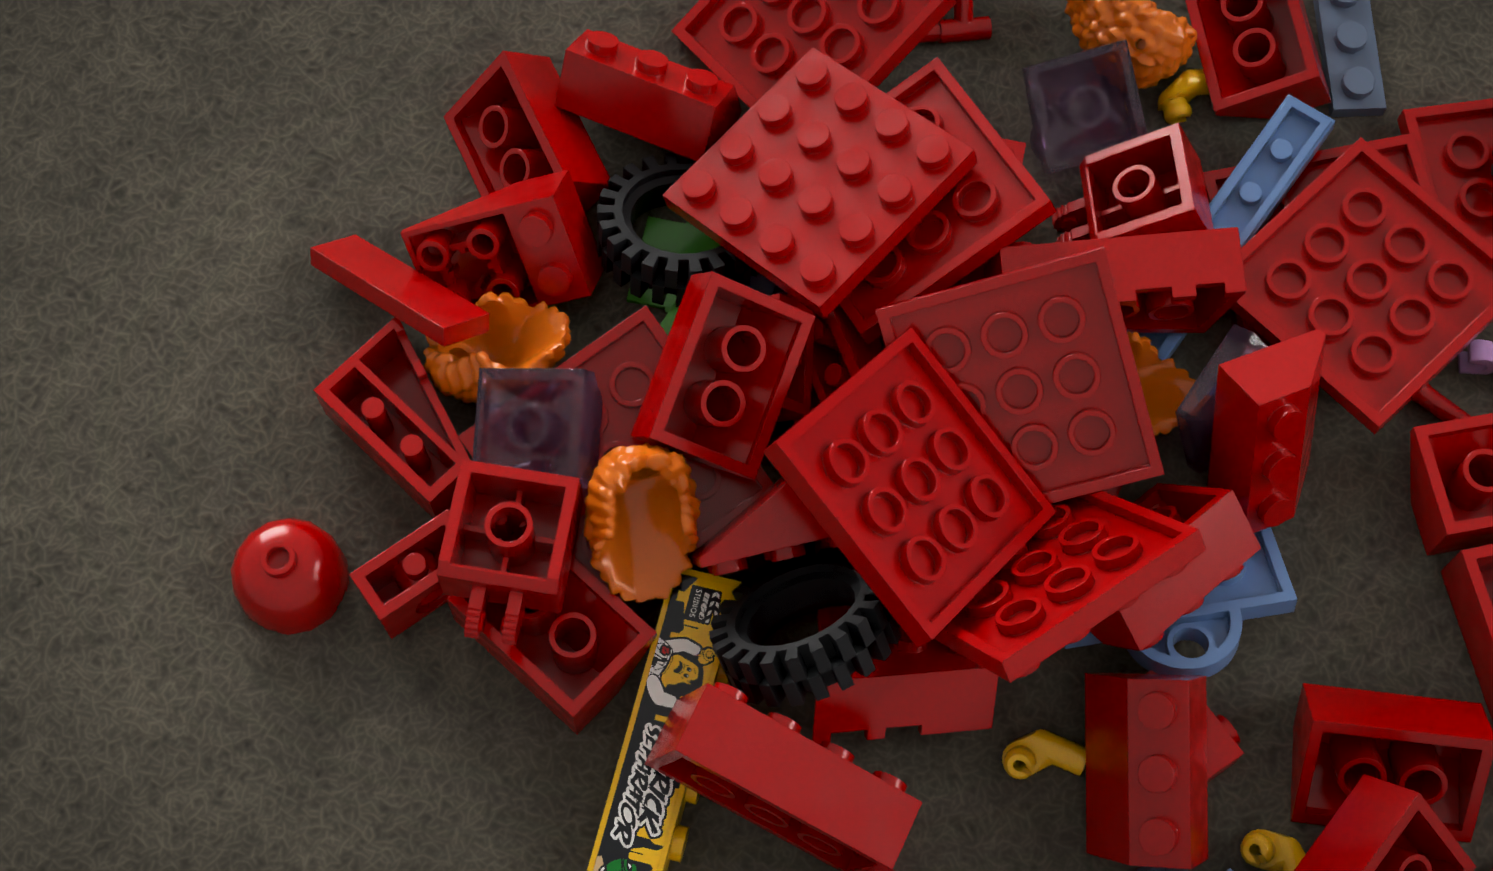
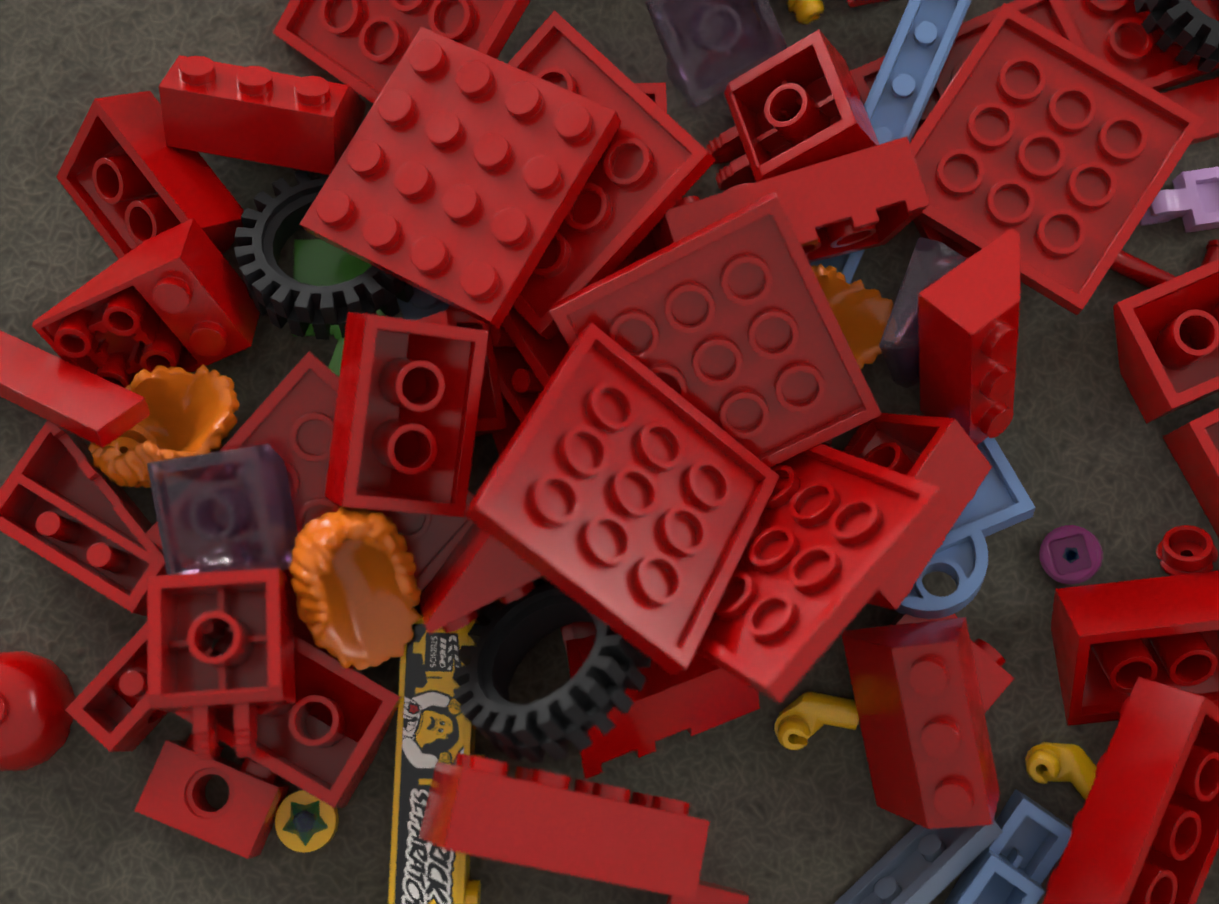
camera: 15 degrees left, 10 degrees up
(435, 666) = (178, 798): none -> red brick
(538, 738) = (305, 822): none -> yellow tile
(1326, 658) = (1071, 554): none -> magenta tile
(1441, 678) = (1186, 541): none -> red plate

